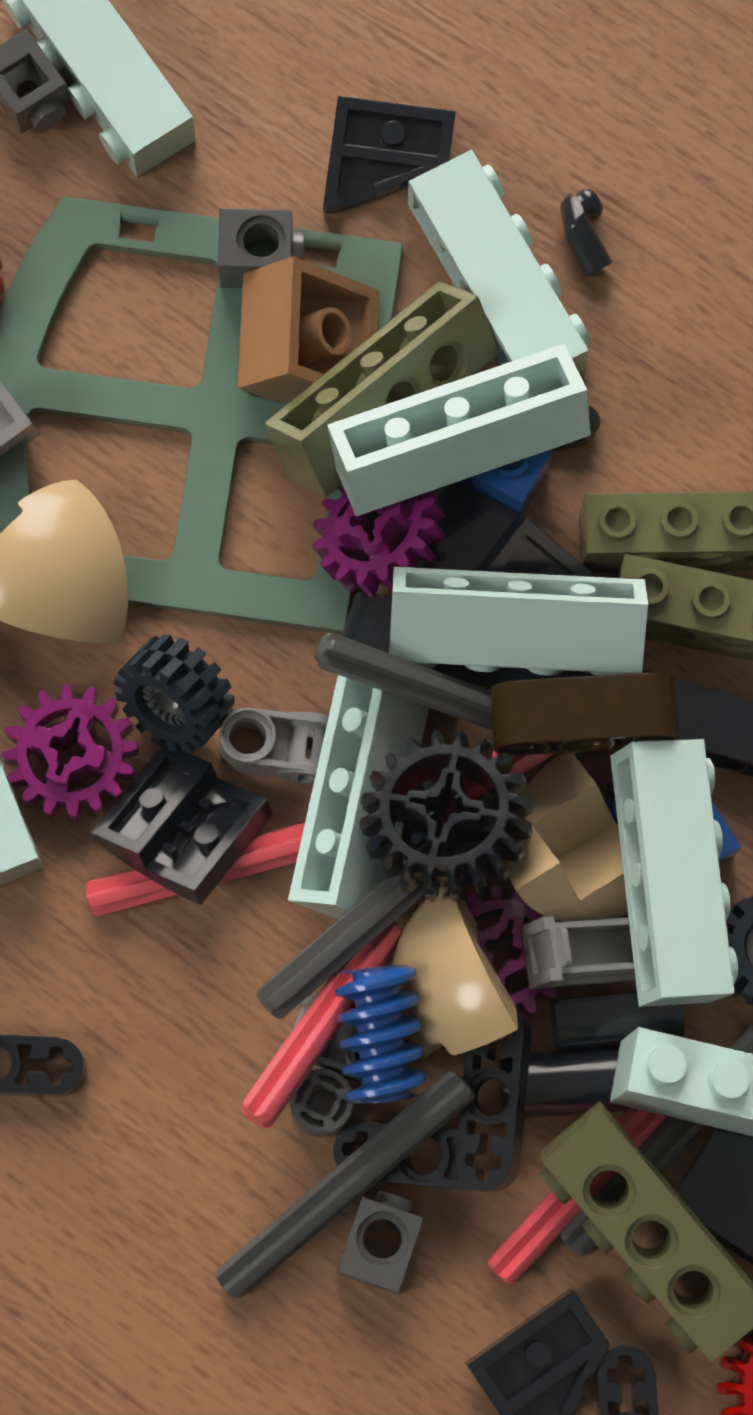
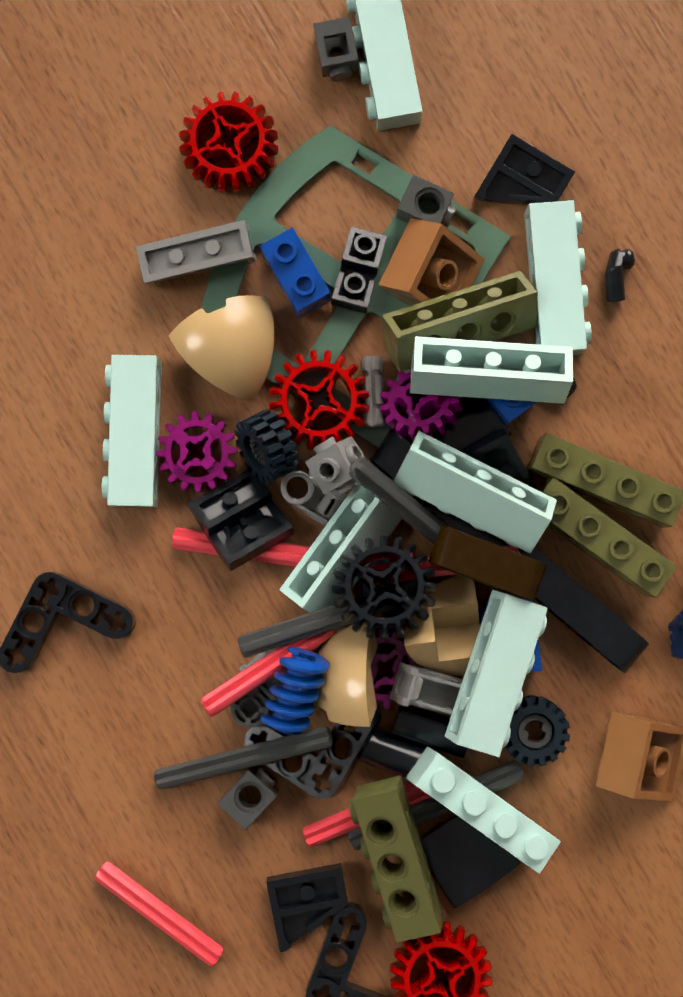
camera: 25 degrees right, 10 degrees up
(106, 424) = (295, 273): none -> blue brick
(198, 383) = (358, 270): none -> black slope
(201, 590) = (303, 391): none -> red gear
(278, 692) = (332, 465): none -> light grey brick
(297, 550) = (372, 368): none -> light grey axle

